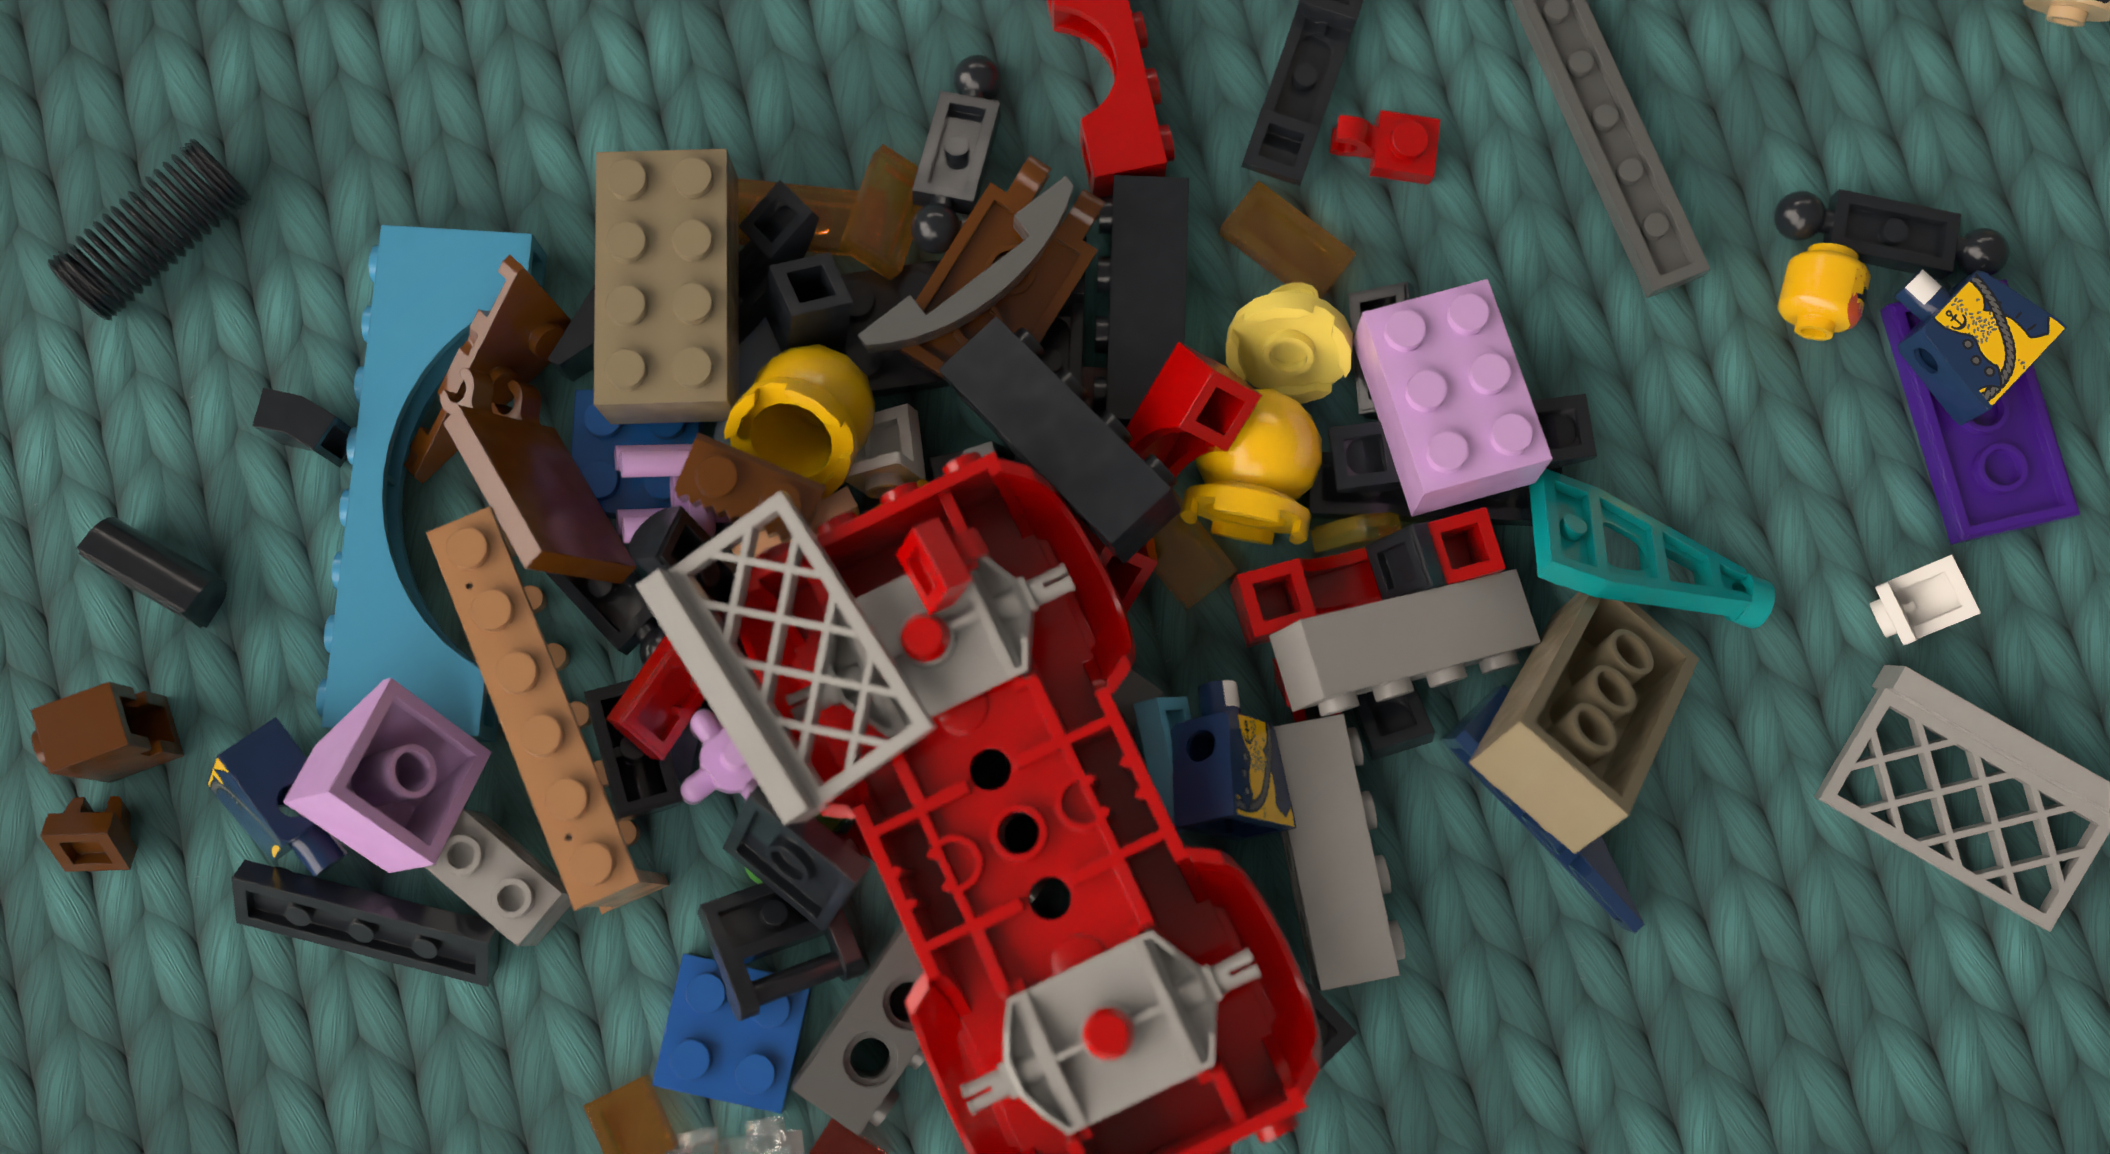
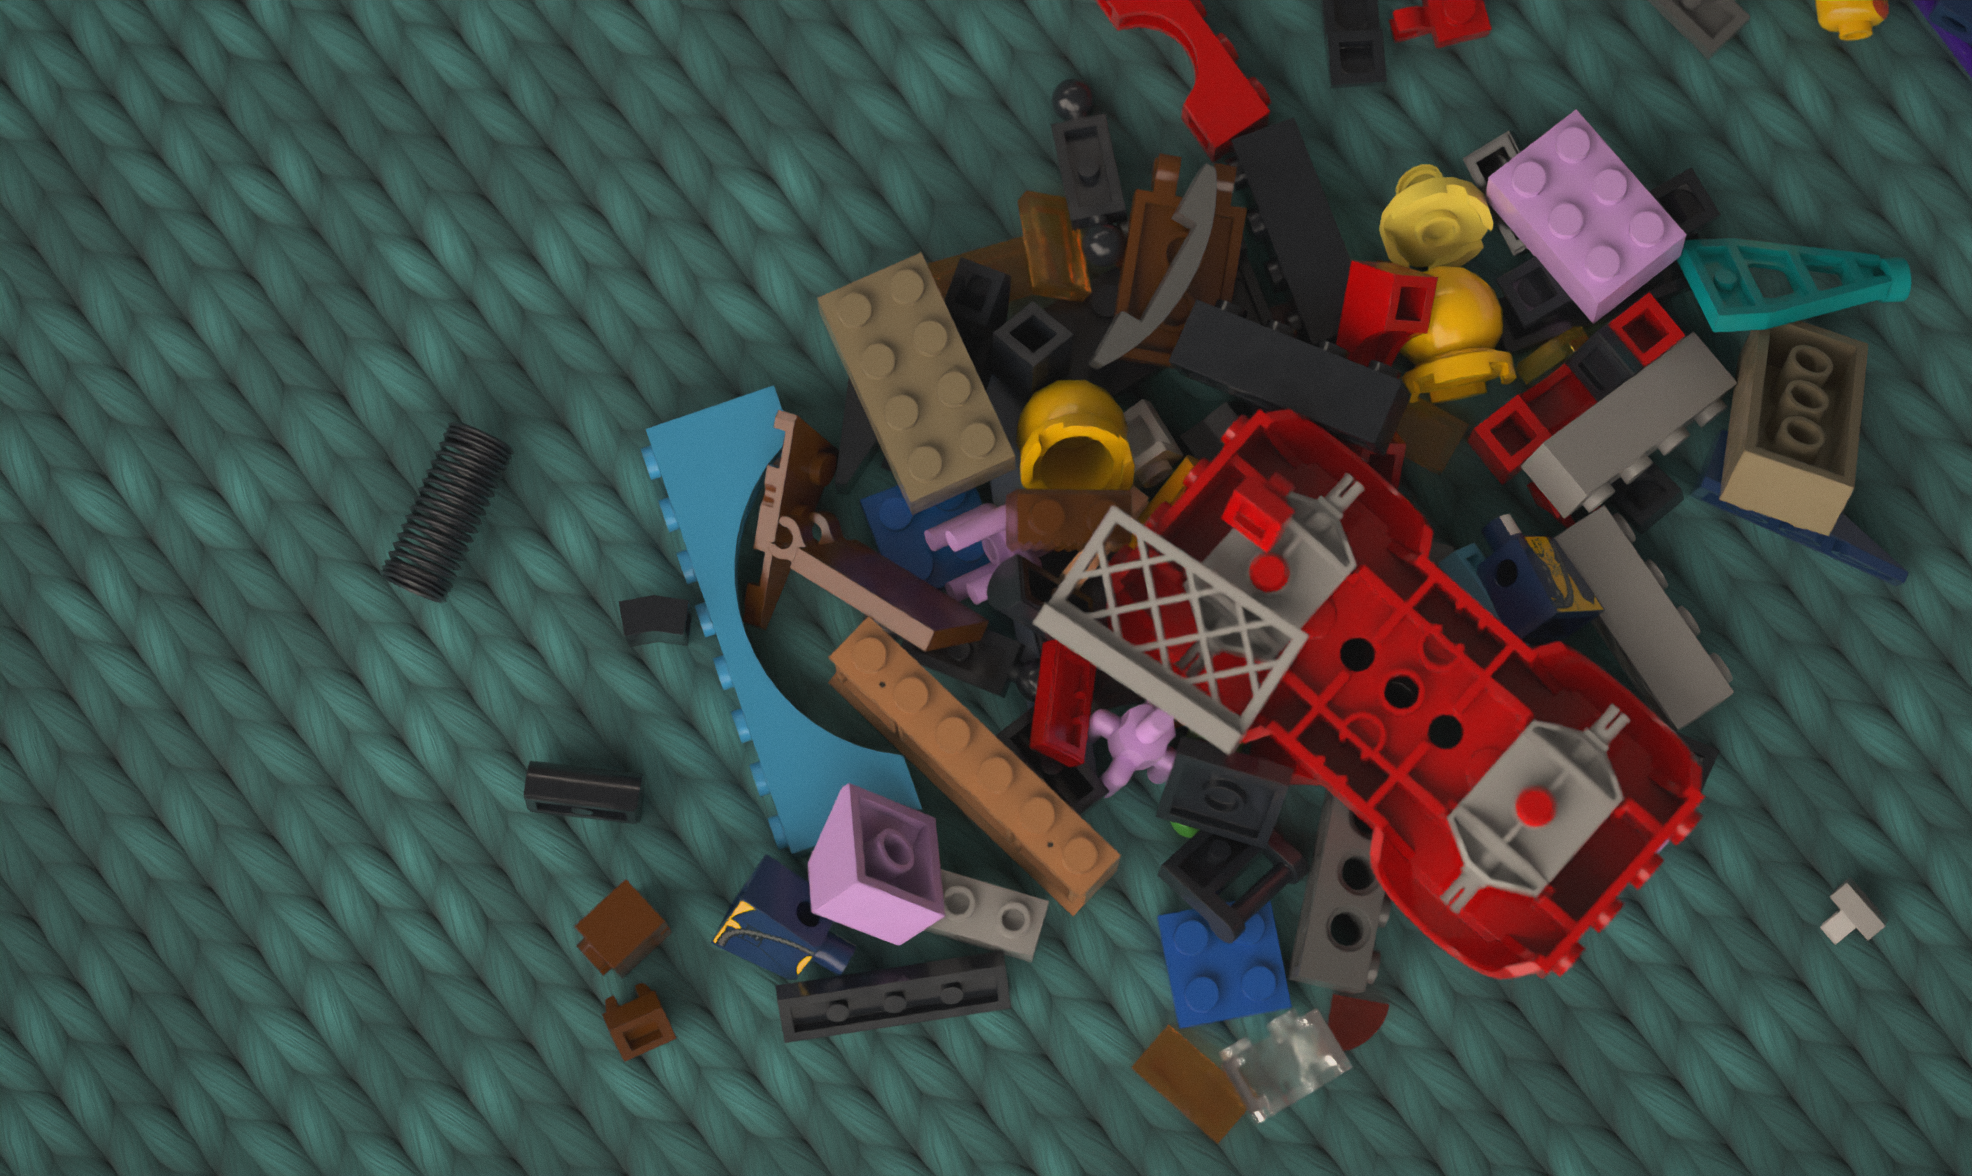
camera: 20 degrees left, 0 degrees up
(1286, 241) = (1391, 133): clear orange tile -> none

